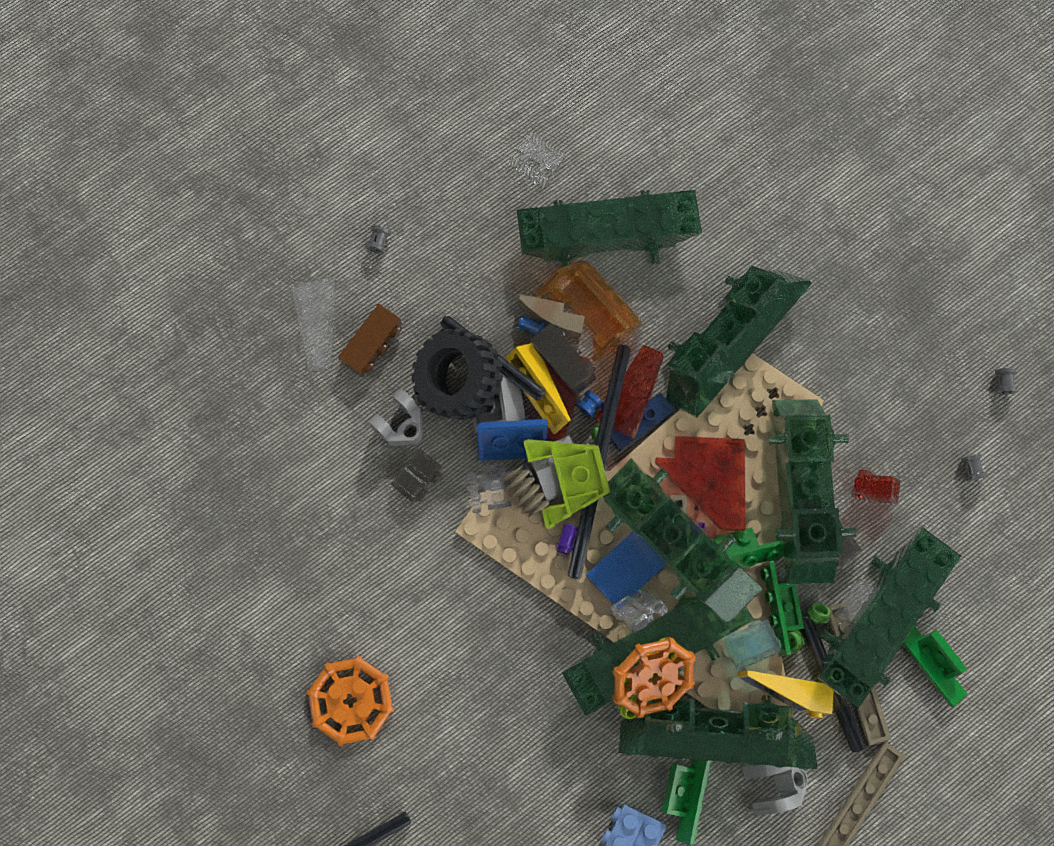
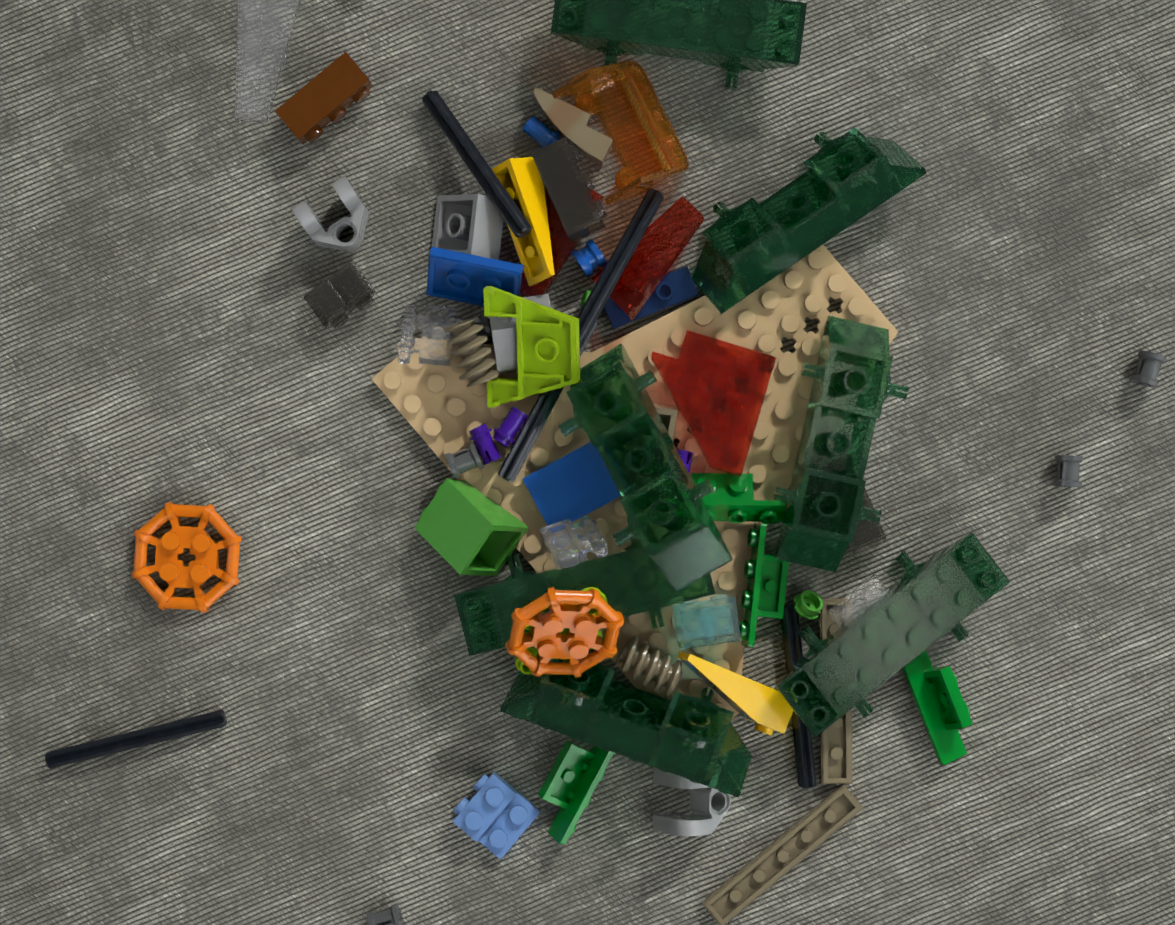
camera: 25 degrees right, 10 degrees up
(432, 367) = (391, 166): black tyre -> none
(540, 572) = (464, 460): none -> dark grey bush
(551, 556) = (484, 443): none -> dark purple pin
(557, 622) = (469, 529): none -> bright green slope
(719, 688) = (650, 665): none -> dark tan piece
(799, 641) = (764, 636): bright green plate -> none
(876, 488) = (931, 464): clear red brick -> none

